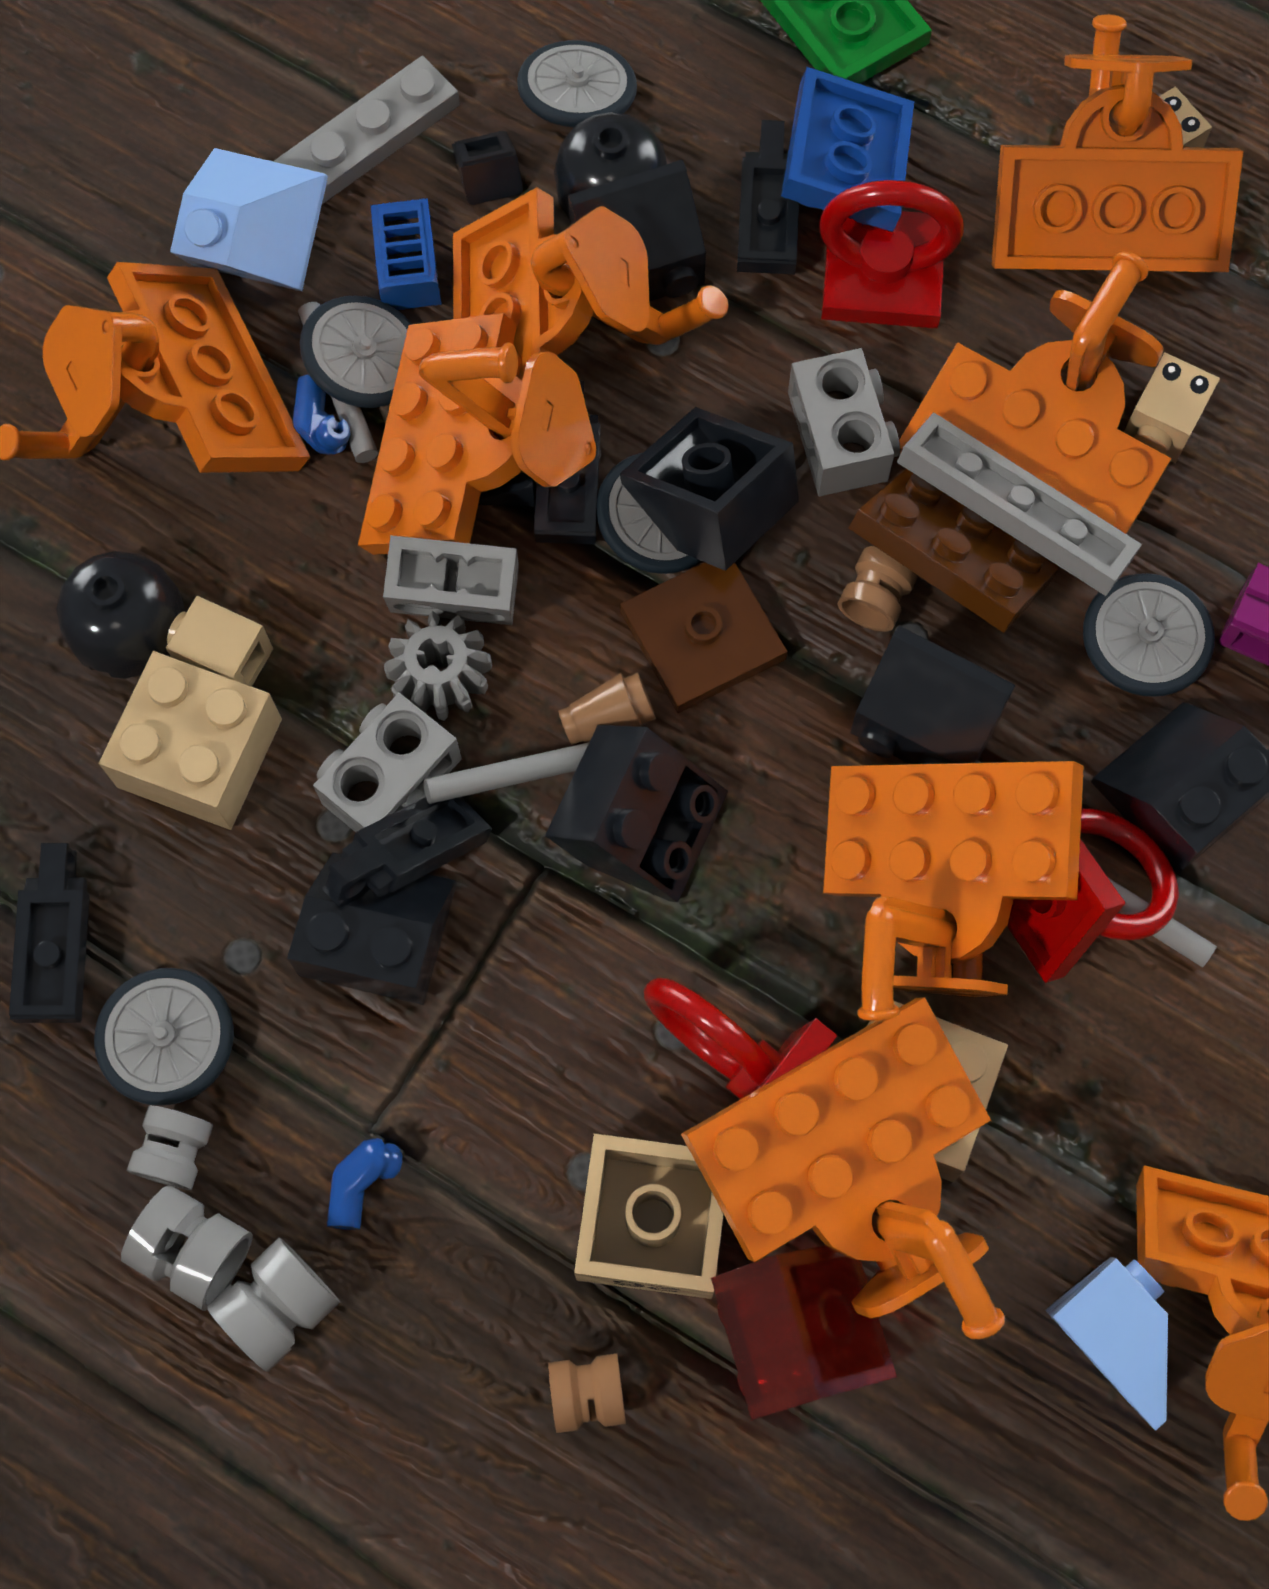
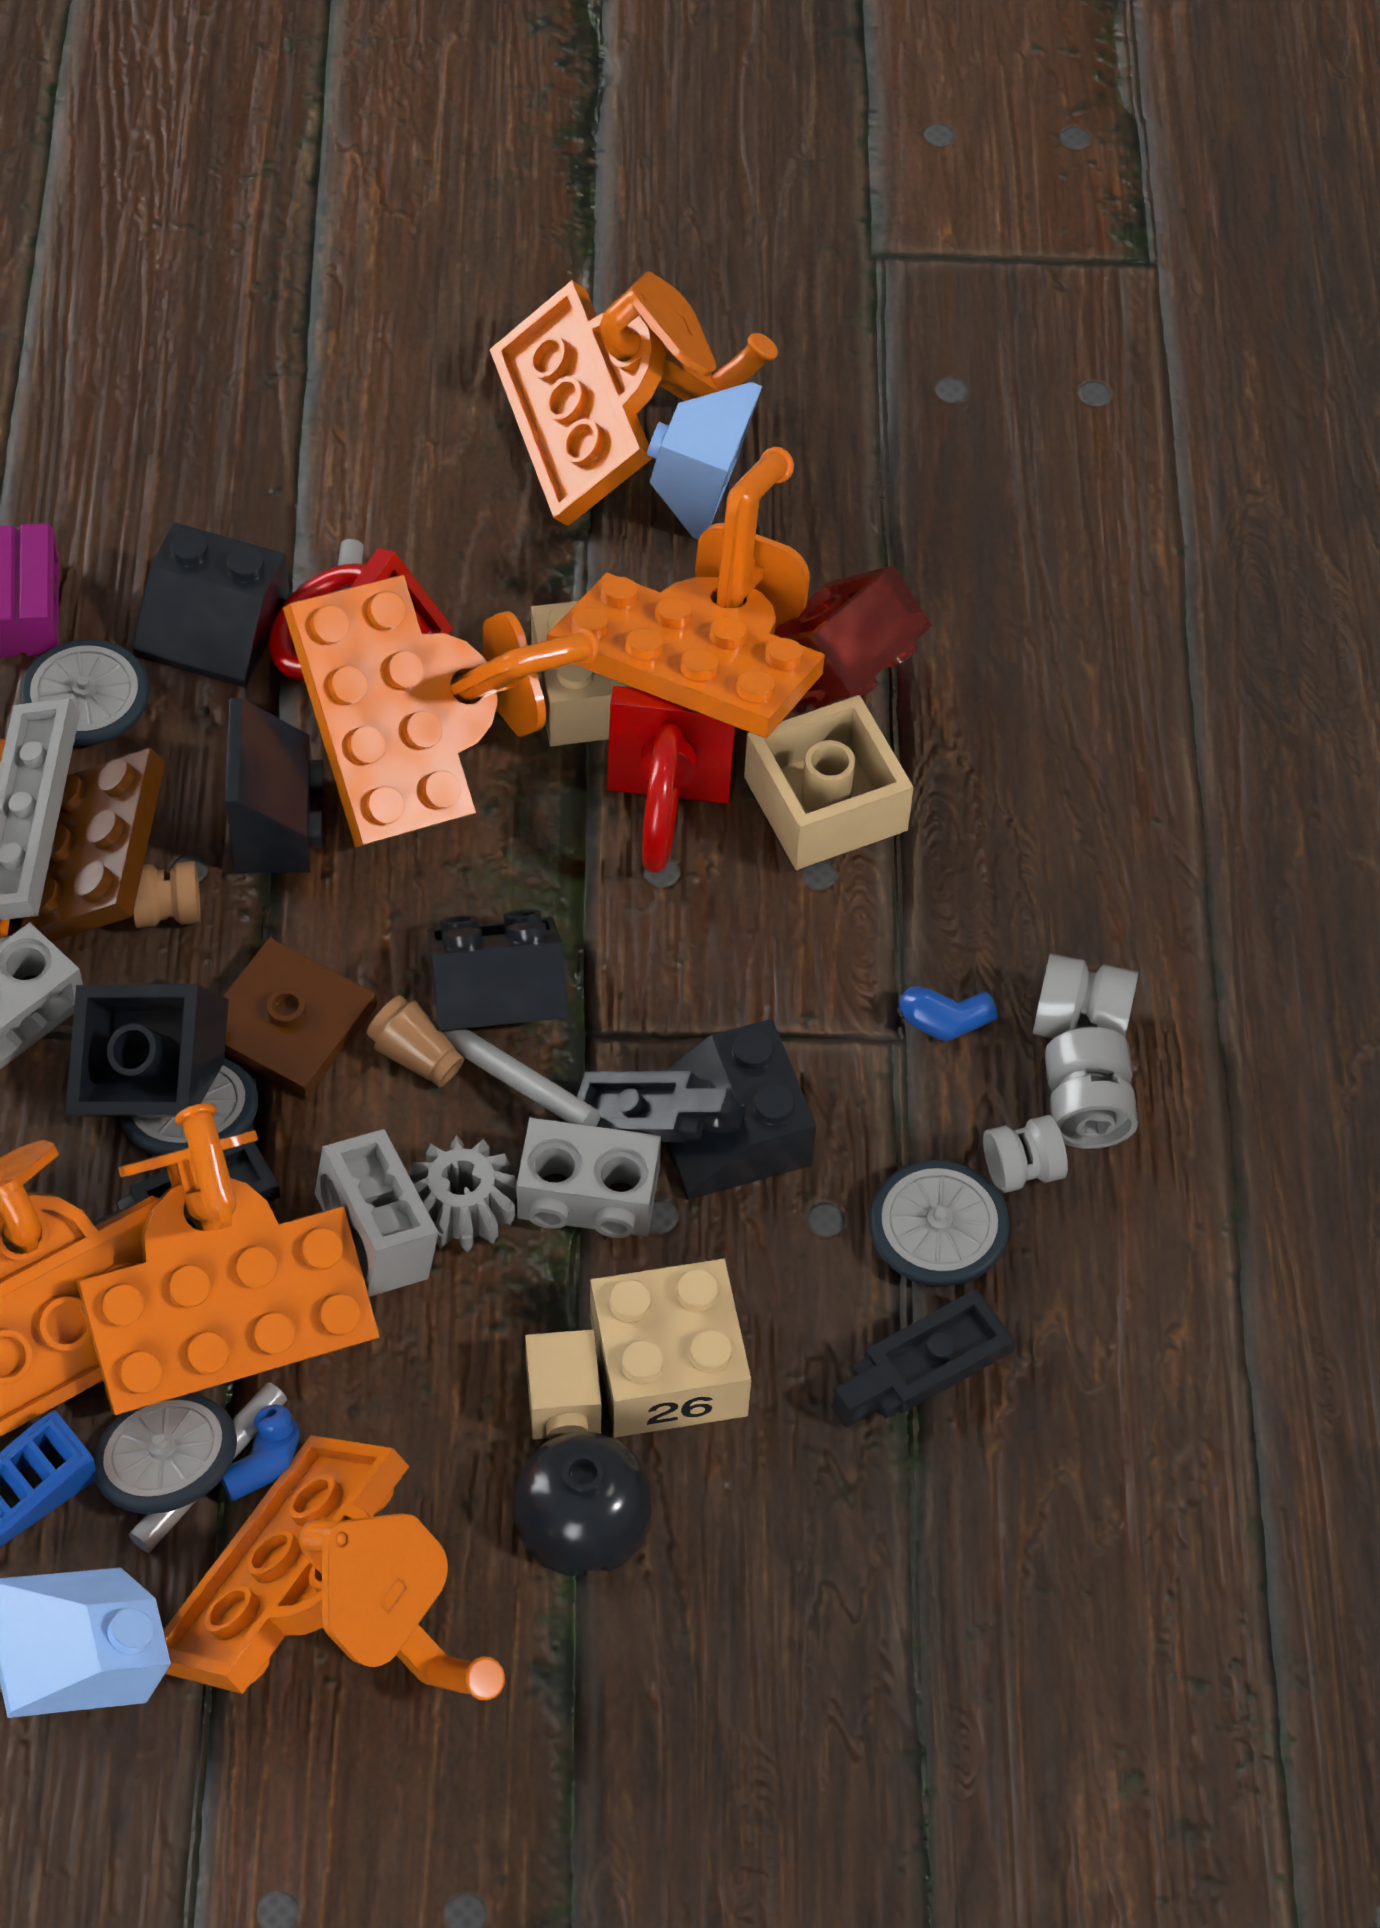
camera: 125 degrees left, 15 degrees down
(586, 1393) = (985, 771): medium nougat wheel -> none

